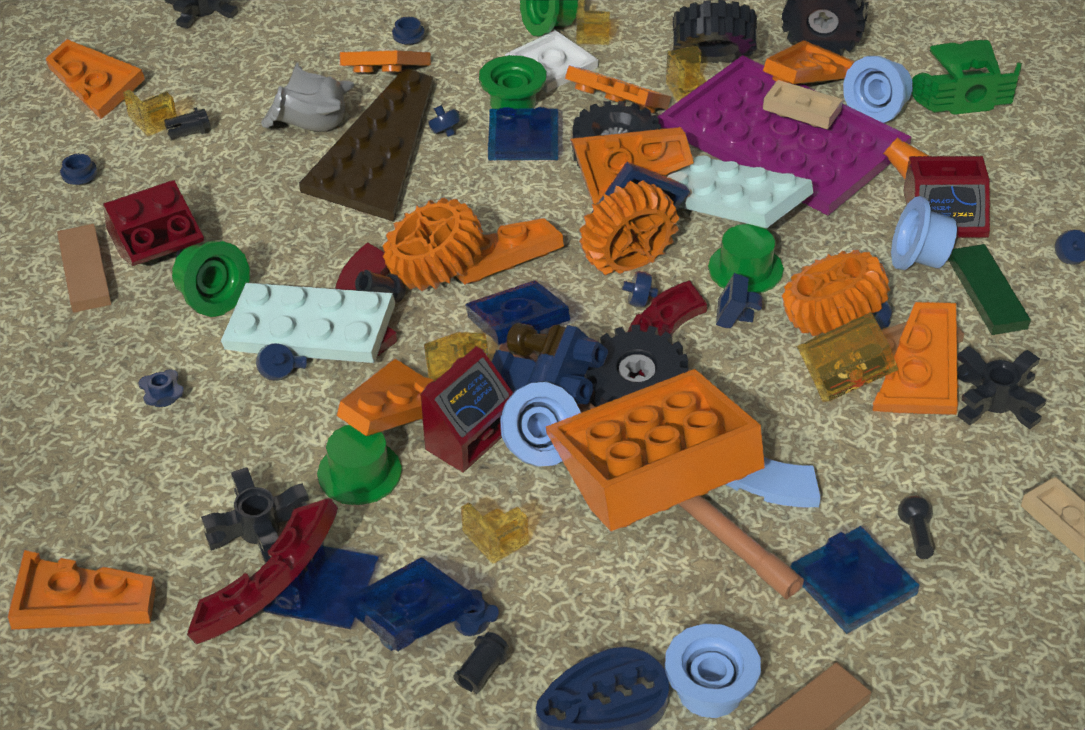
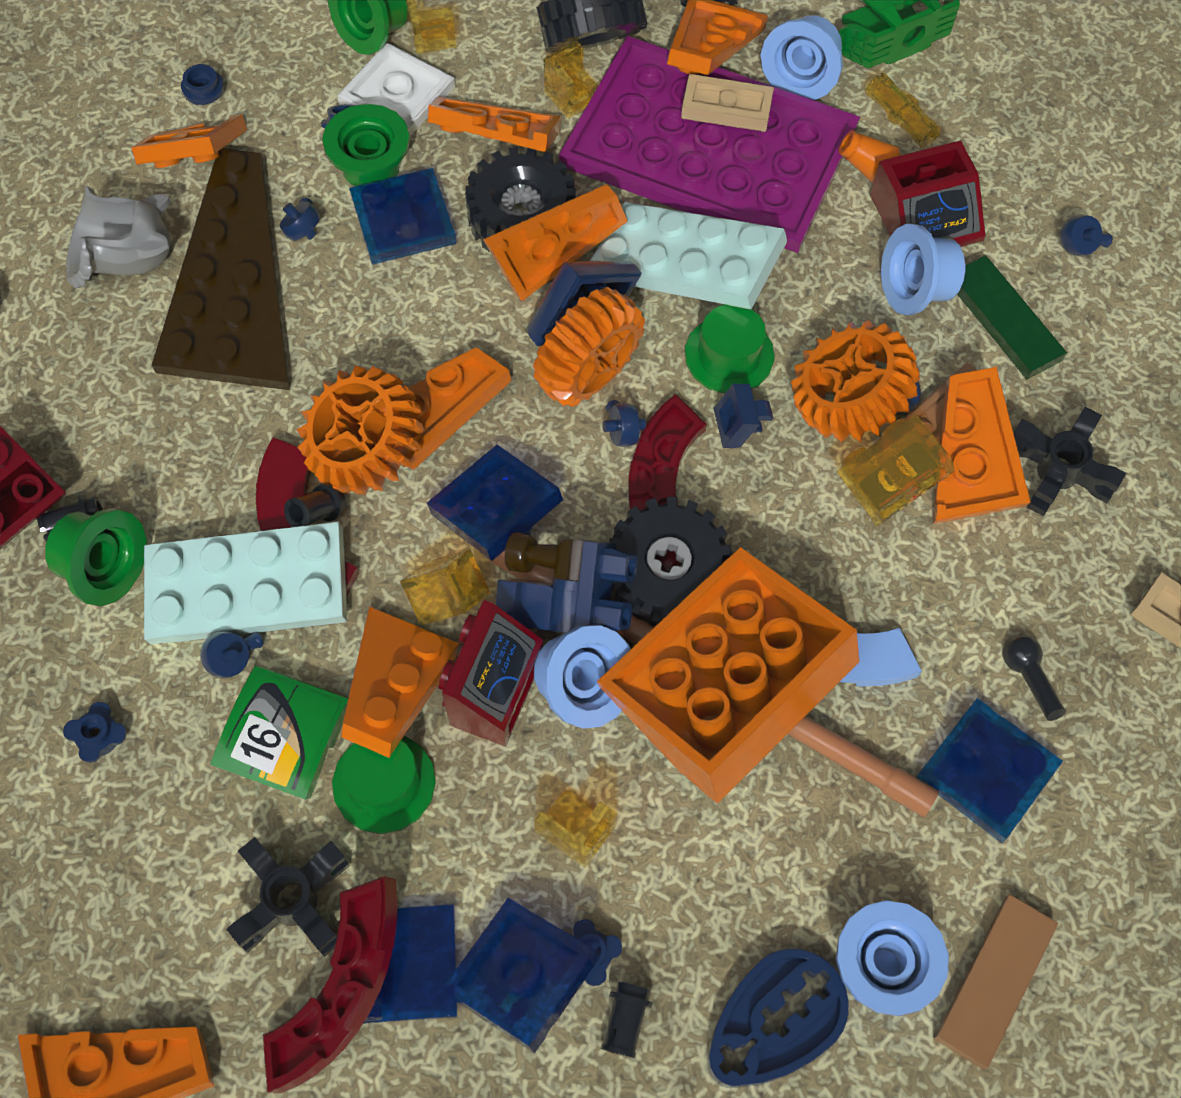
camera: 20 degrees left, 20 degrees up
(292, 418) = (280, 732): none -> slope
(949, 139) = (903, 110): none -> clear yellow pin

